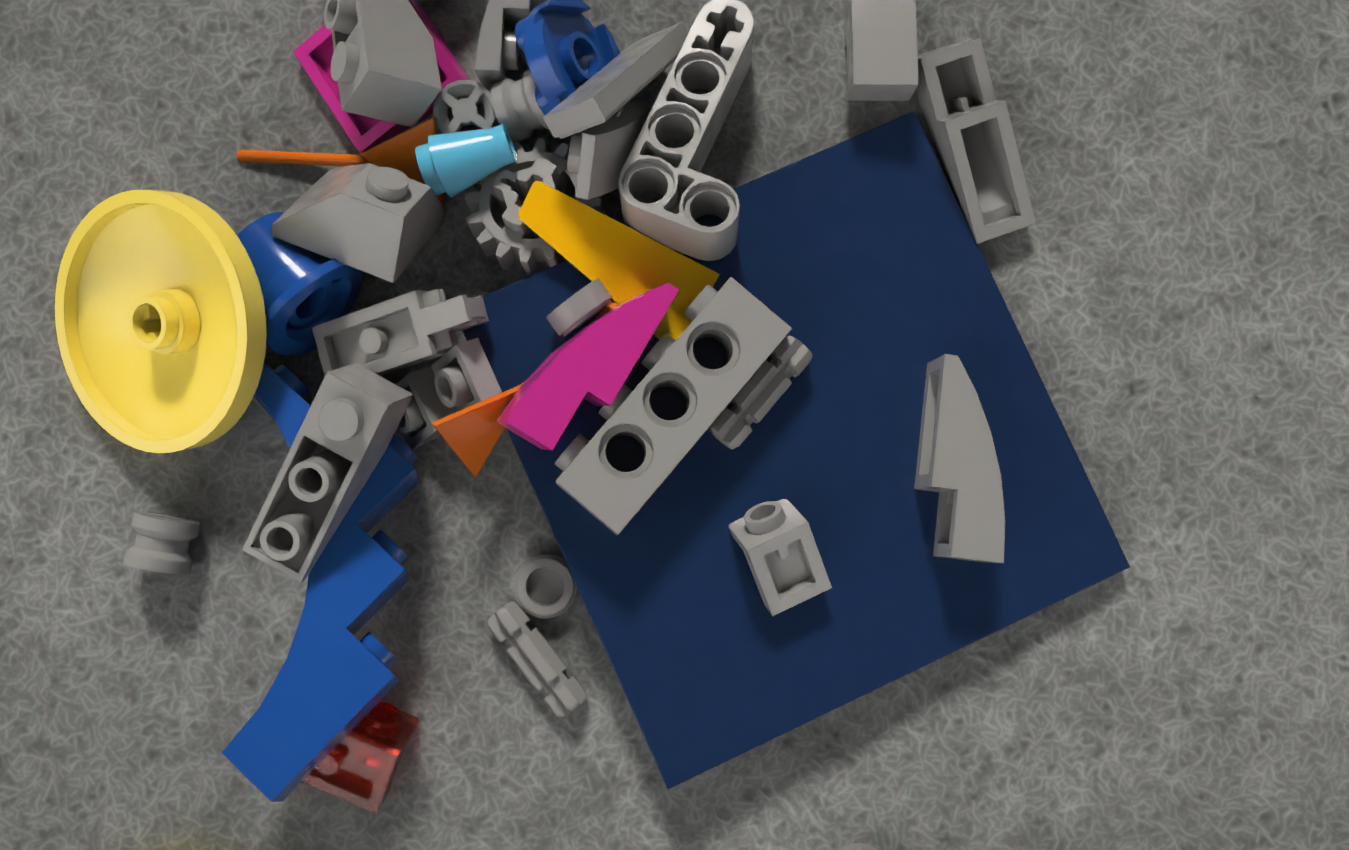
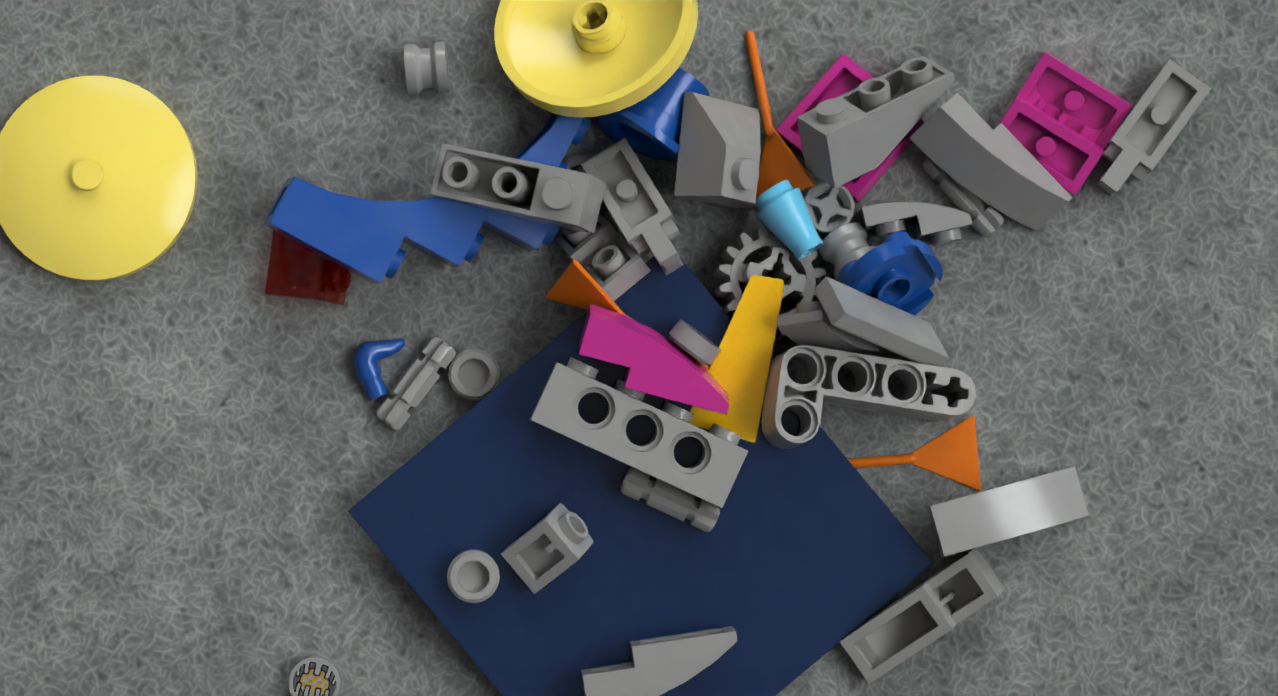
camera: 75 degrees right, 0 degrees up
(500, 712) = (366, 364): none -> blue animal
(788, 656) = (473, 576): none -> light grey tile
(792, 63) = (948, 455): none -> orange piece

